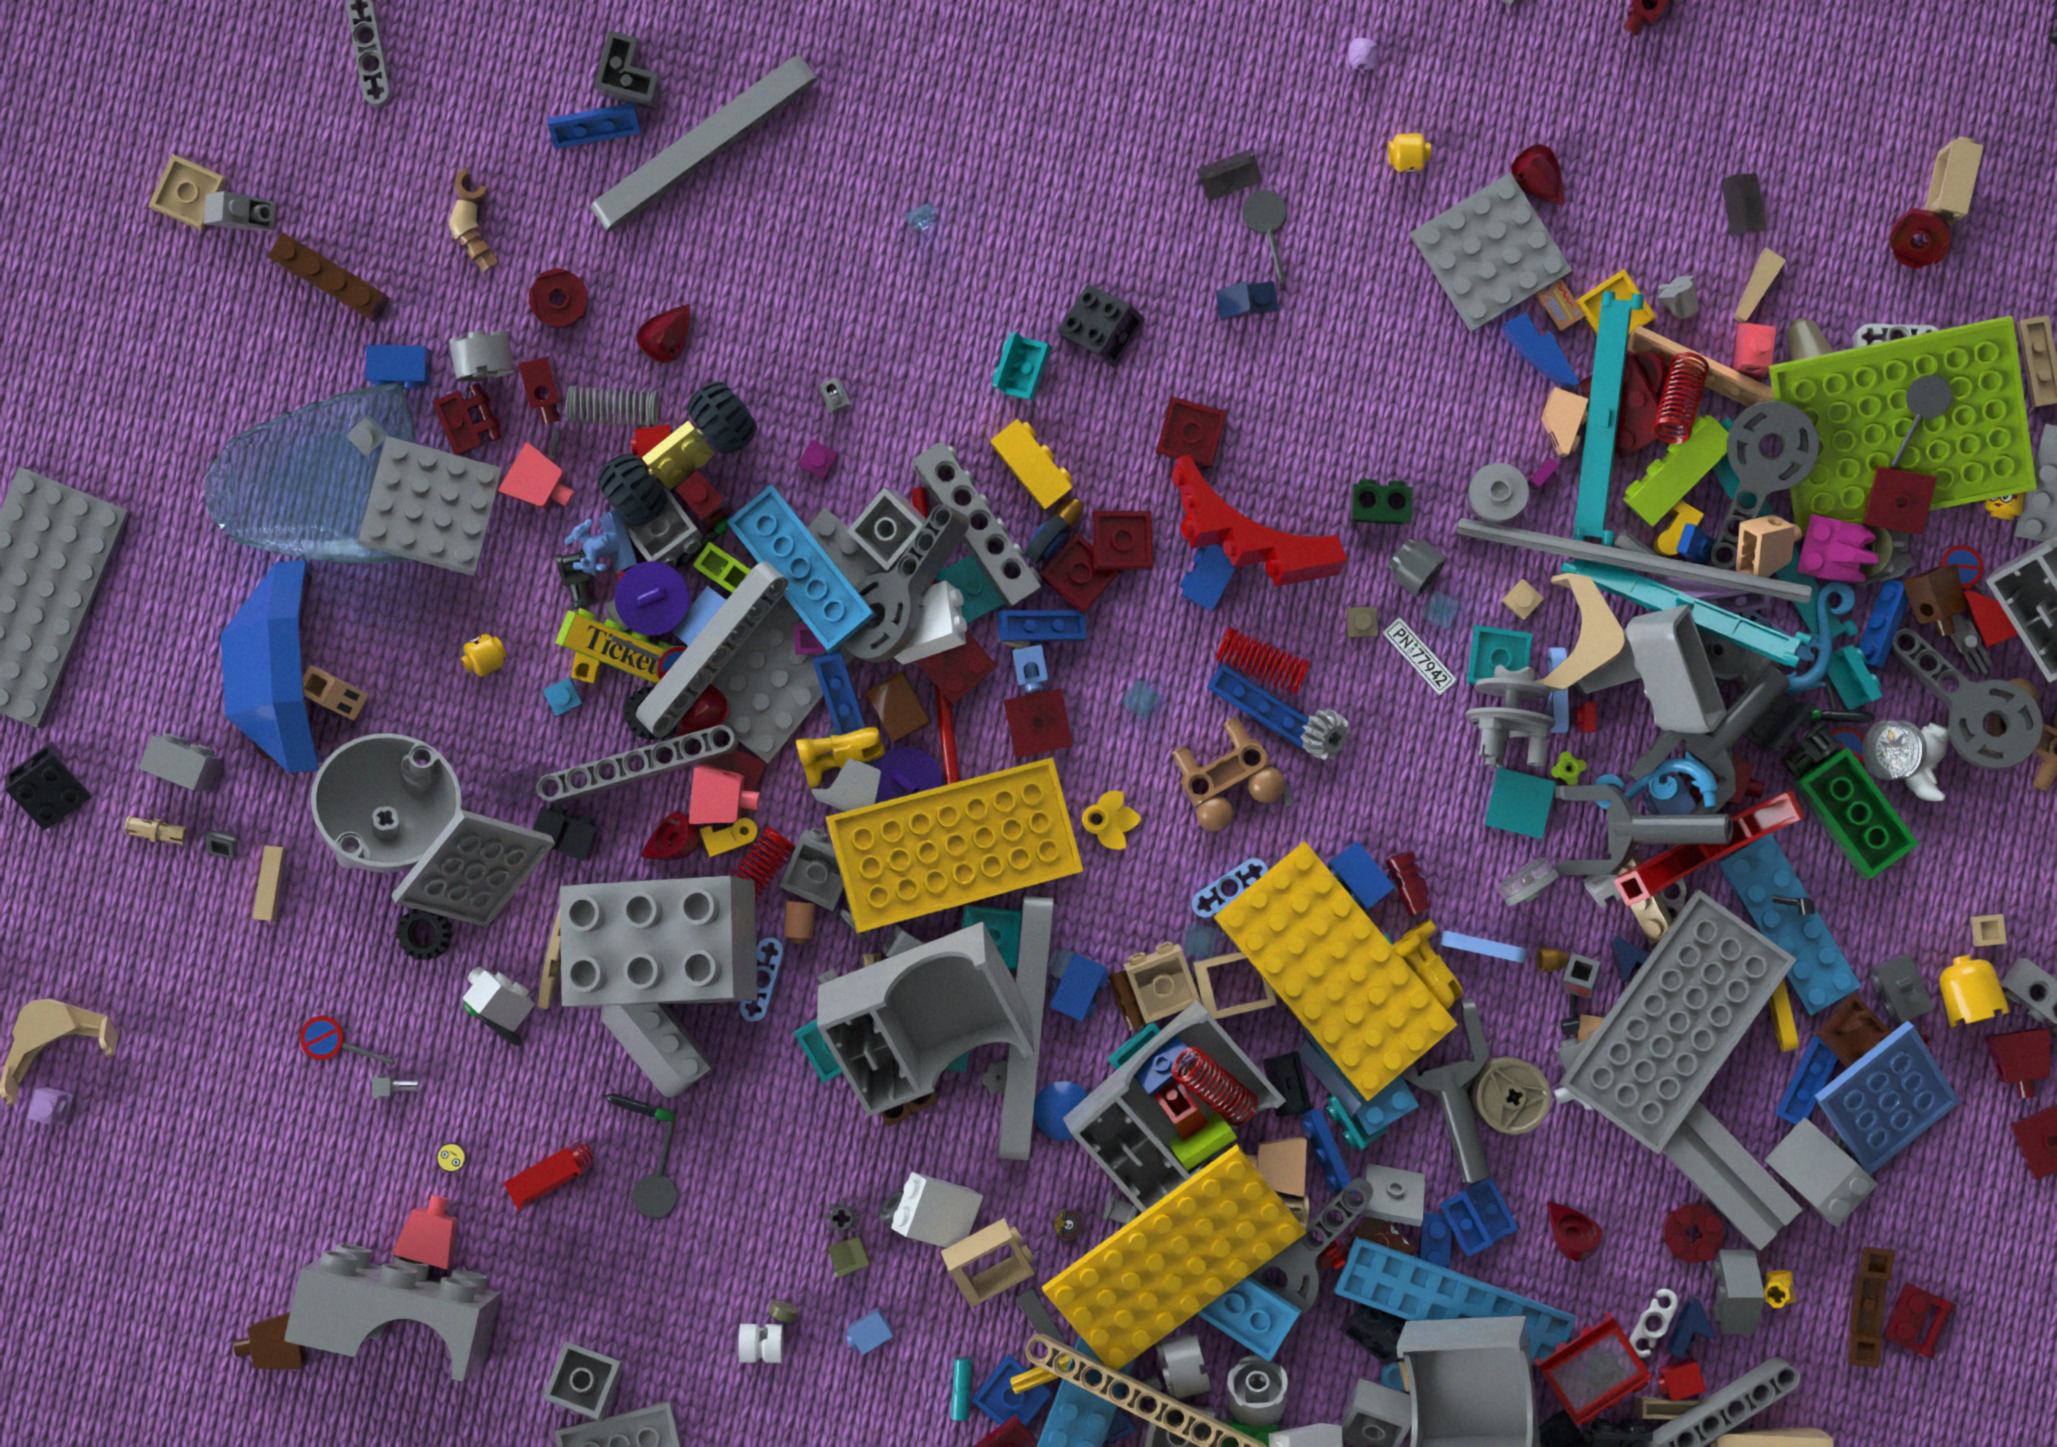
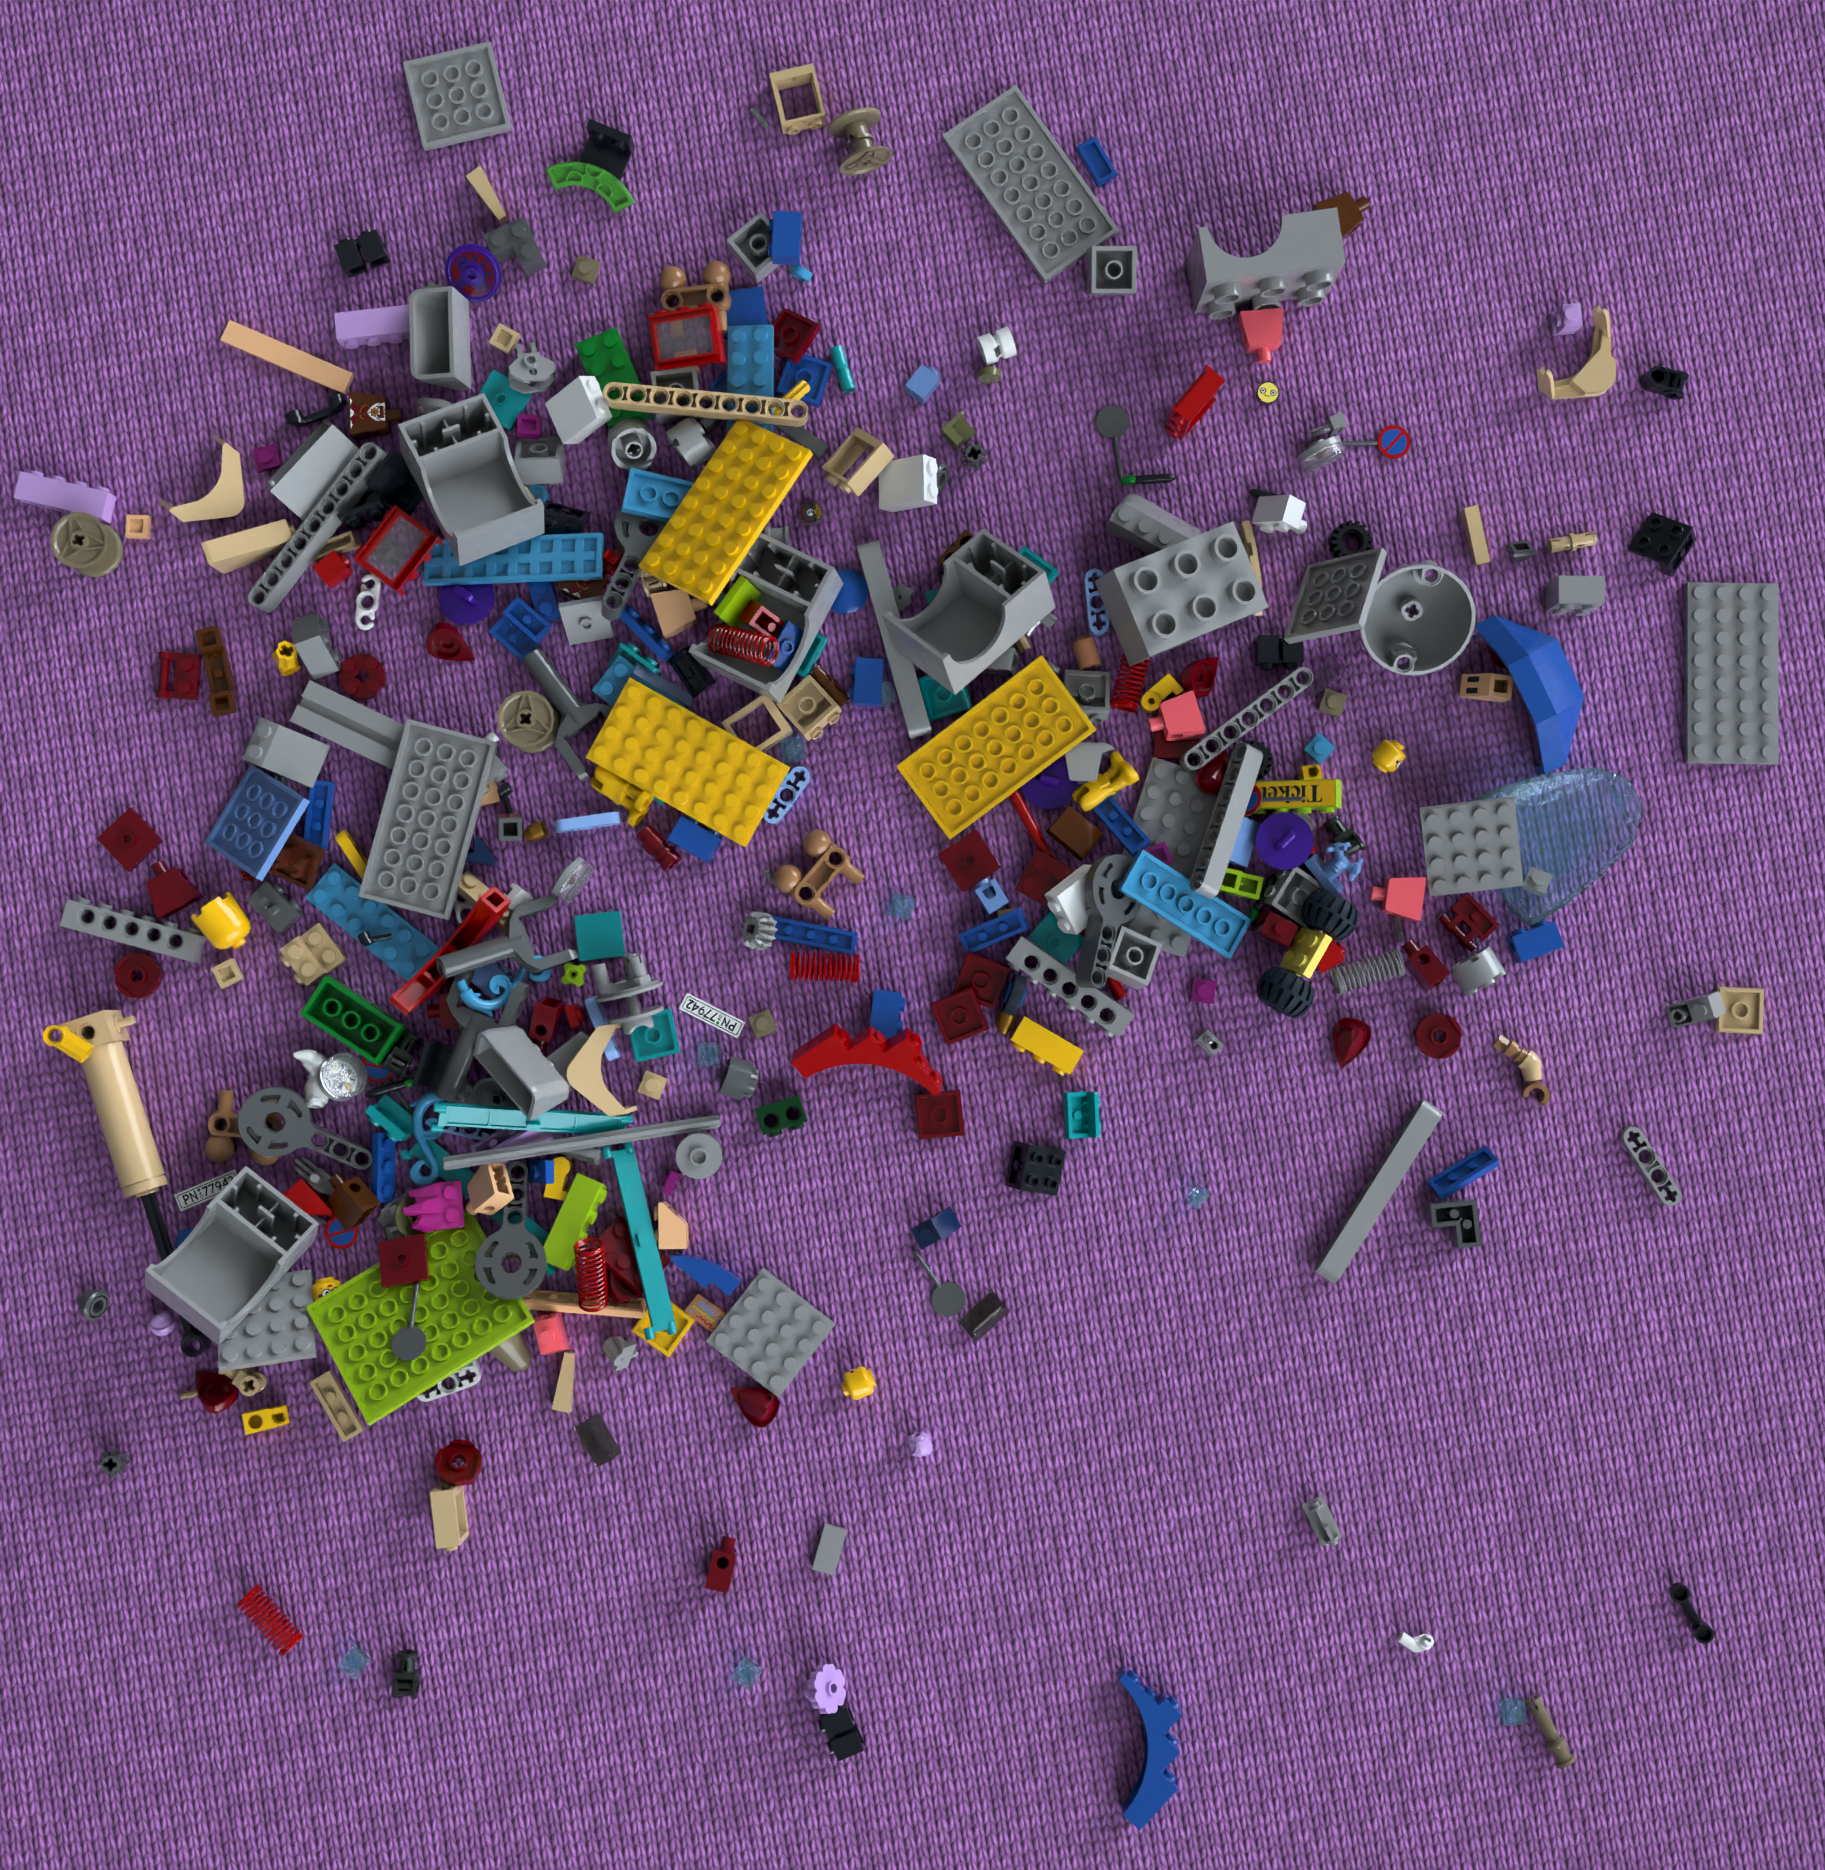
camera: 155 degrees right, 0 degrees up
(328, 277) = (1612, 986): reddish brown arch -> none
(417, 1052) = (1321, 454): none -> clear piece
(524, 746) = (1332, 703): none -> dark tan plate
(1114, 822) = (887, 813): yellow plate -> none
(1532, 1274) = (466, 602): none -> dark purple shield
(1622, 723) = (546, 1013): none -> dark red torso
(1691, 1319) = (342, 611): dark blue slope -> none
(1877, 912) = (312, 955): none -> tan plate

